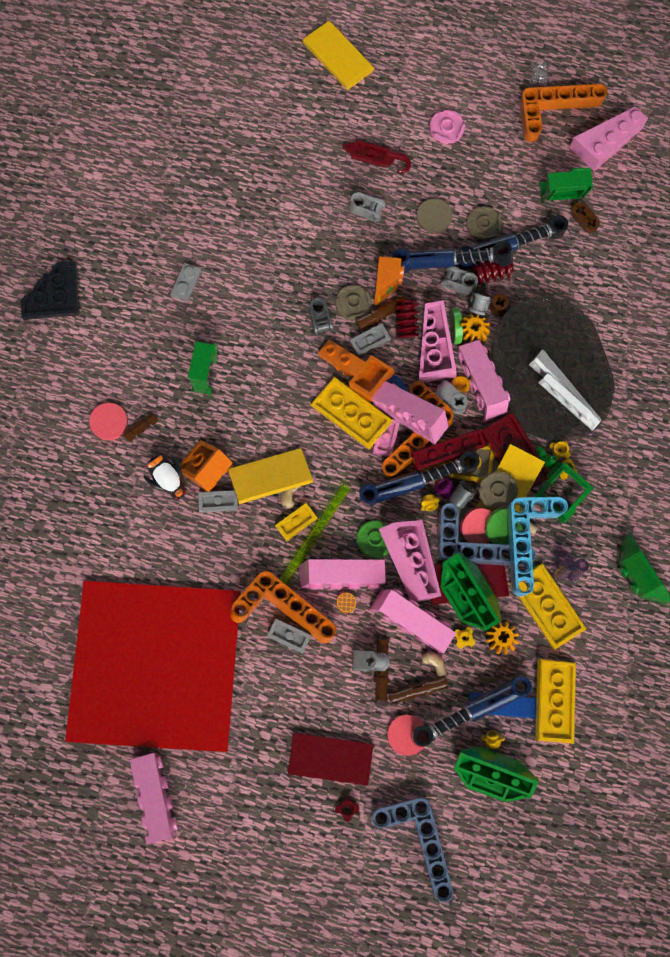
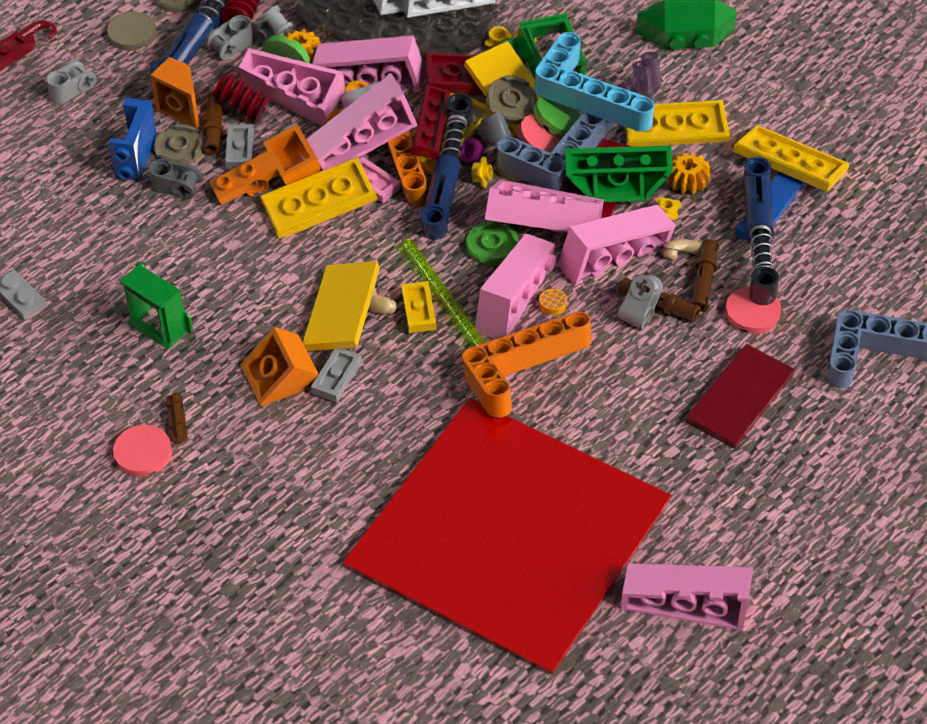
camera: 55 degrees left, 25 degrees down
(165, 476) = (264, 408): animal -> none
(289, 636) = (559, 372): light grey plate -> none
(332, 279) = (133, 152): none -> blue panel
(353, 808) = (809, 396): dark red plate -> none
(492, 739) = (803, 230): yellow plate -> none
(495, 774) = (851, 240): green wedge -> none
(499, 299) = (291, 16): reddish brown bush -> none

